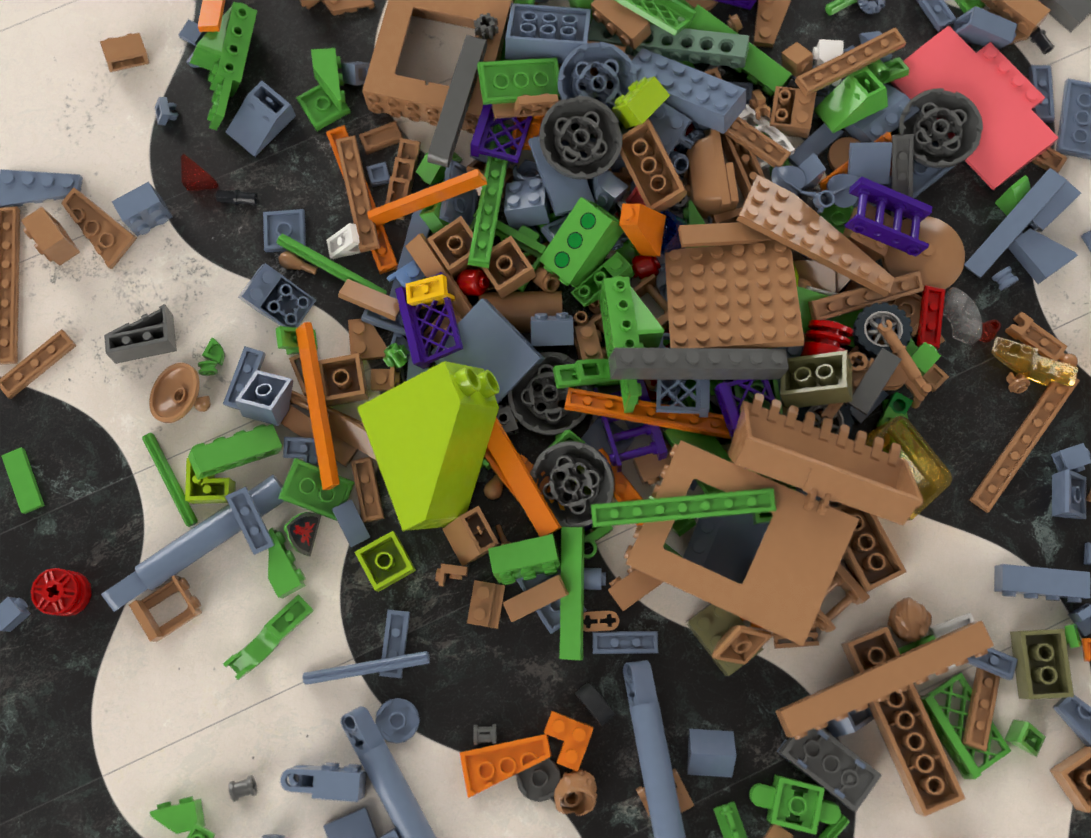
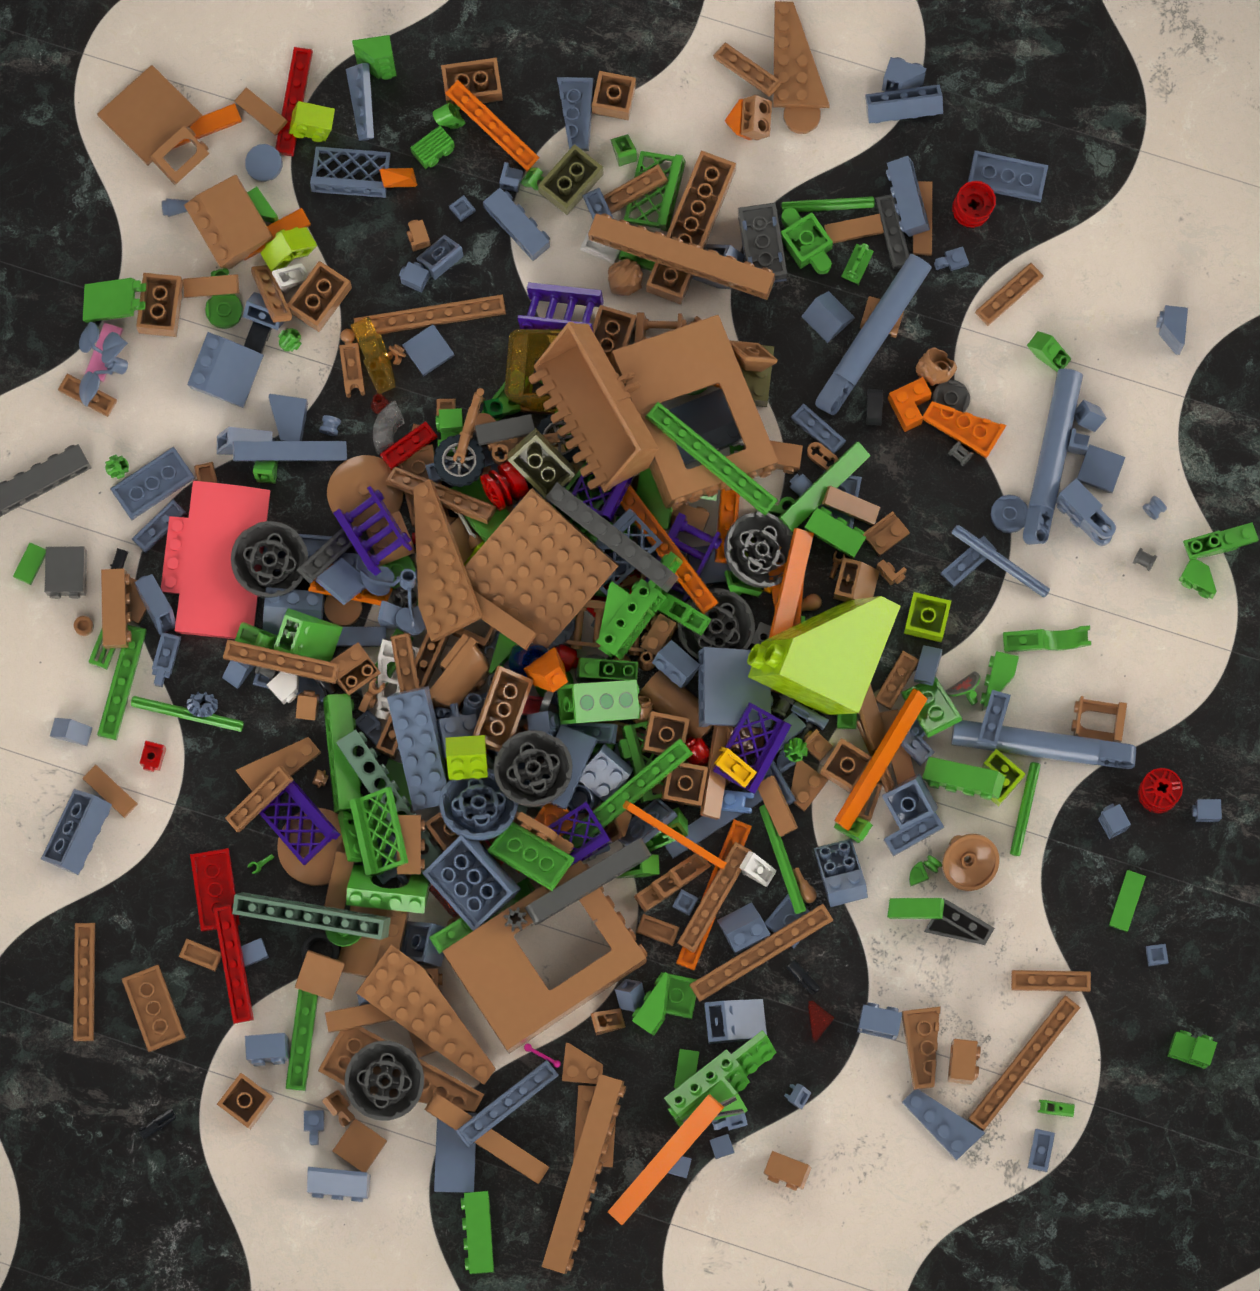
camera: 135 degrees left, 0 degrees up
(79, 530) = (1114, 820): none -> sand blue brick
(187, 317) = (915, 908): none -> bright green tile
(267, 61) = (686, 1066): none -> bright green tile
(283, 186) = (761, 952): none -> medium nougat tile
(314, 191) = (743, 928): none -> sand blue slope
(357, 39) = (607, 1021): none -> medium nougat slope
(948, 549) = (558, 294): none -> dark purple fence
(996, 410) = (428, 350): none -> sand blue tile

